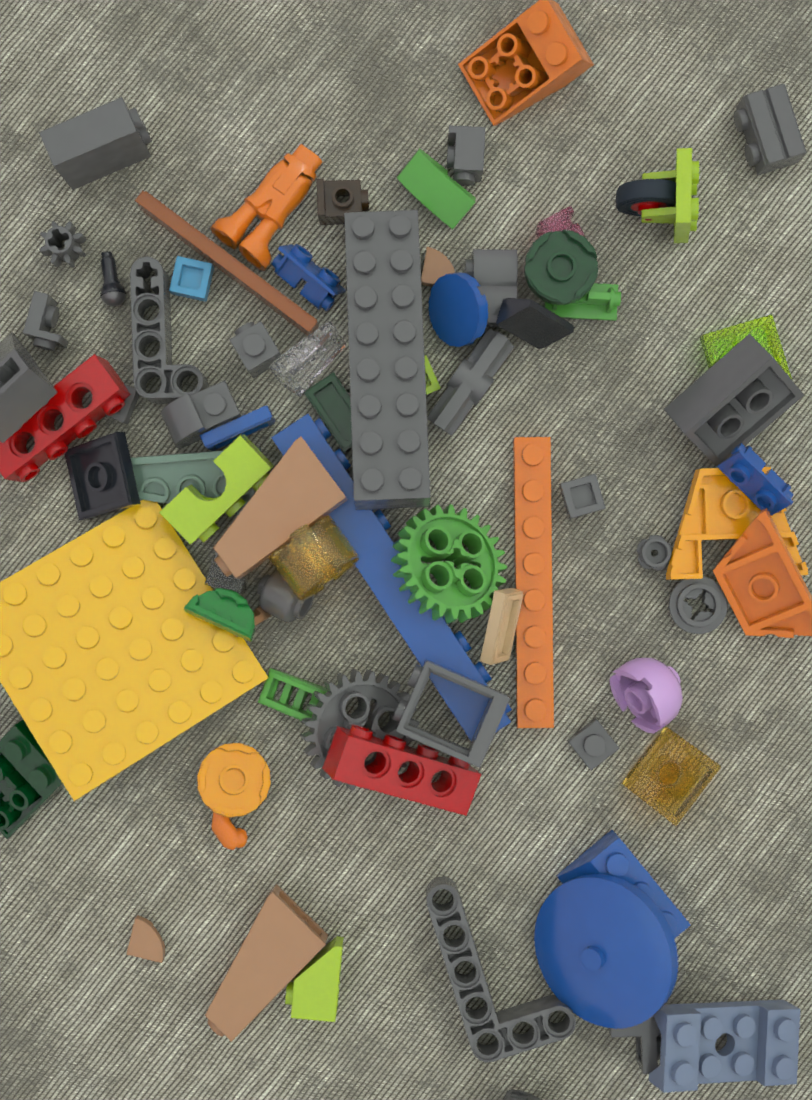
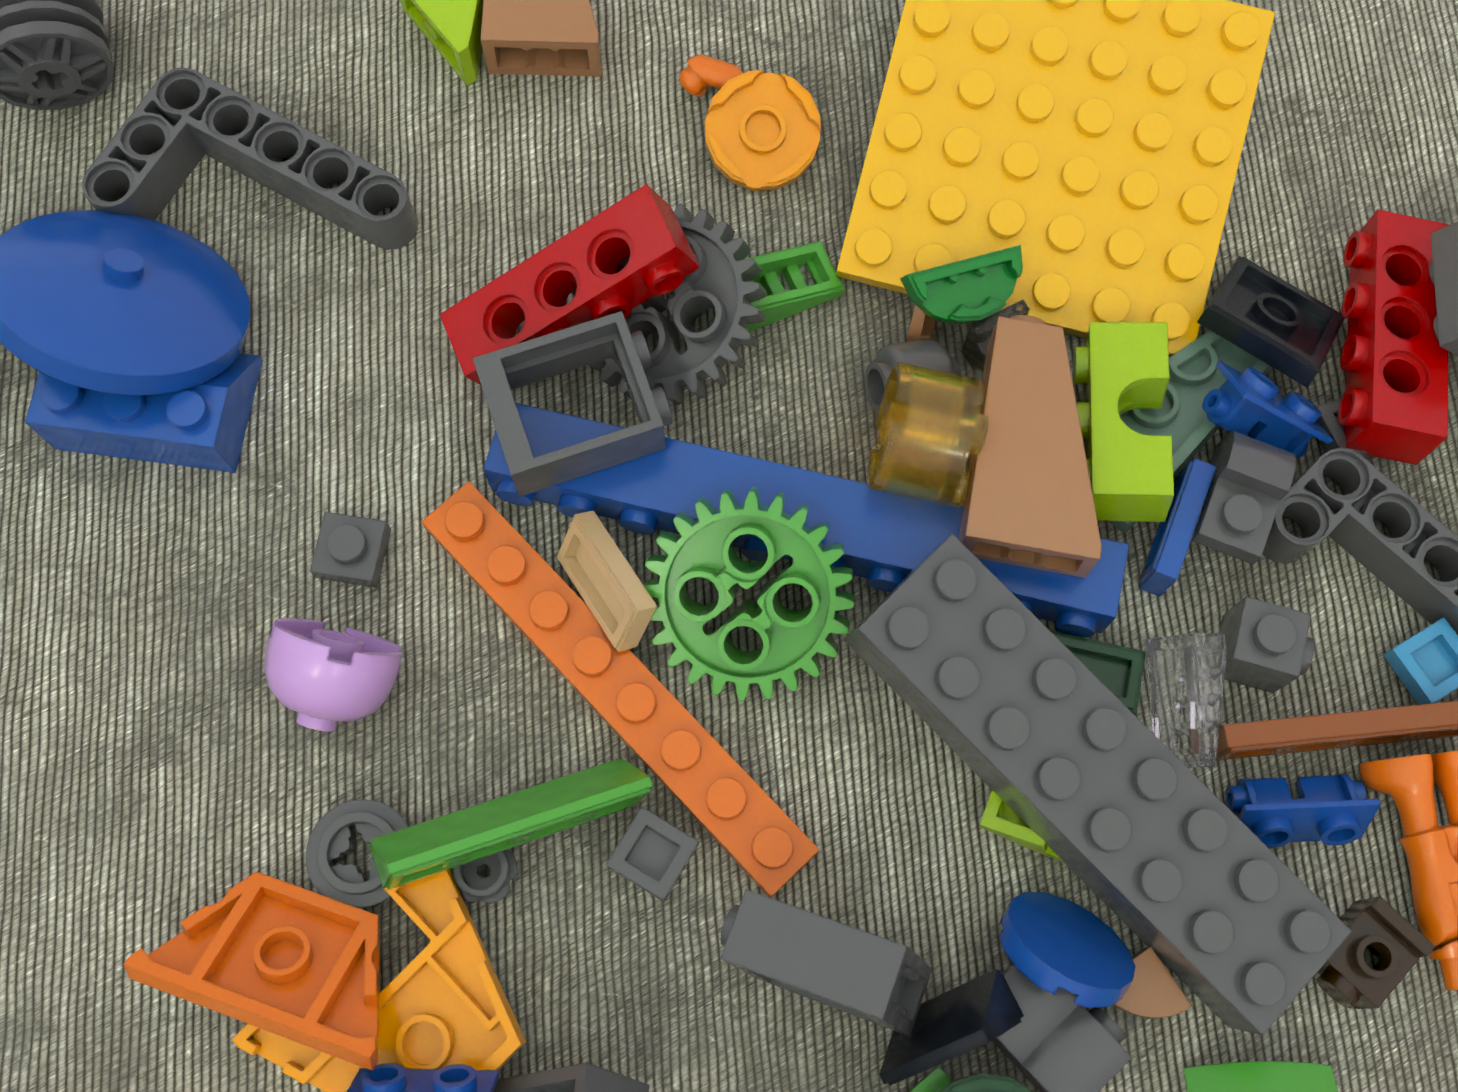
camera: 135 degrees right, 15 degrees down
(150, 440) = (1253, 398): none -> blue hinge
(470, 381) = (950, 867): dark grey piece -> none
(559, 387) = (825, 961): none -> dark grey window
(630, 559) = (507, 822): none -> bright green slope
(671, 775) = (205, 593): clear yellow slope -> none

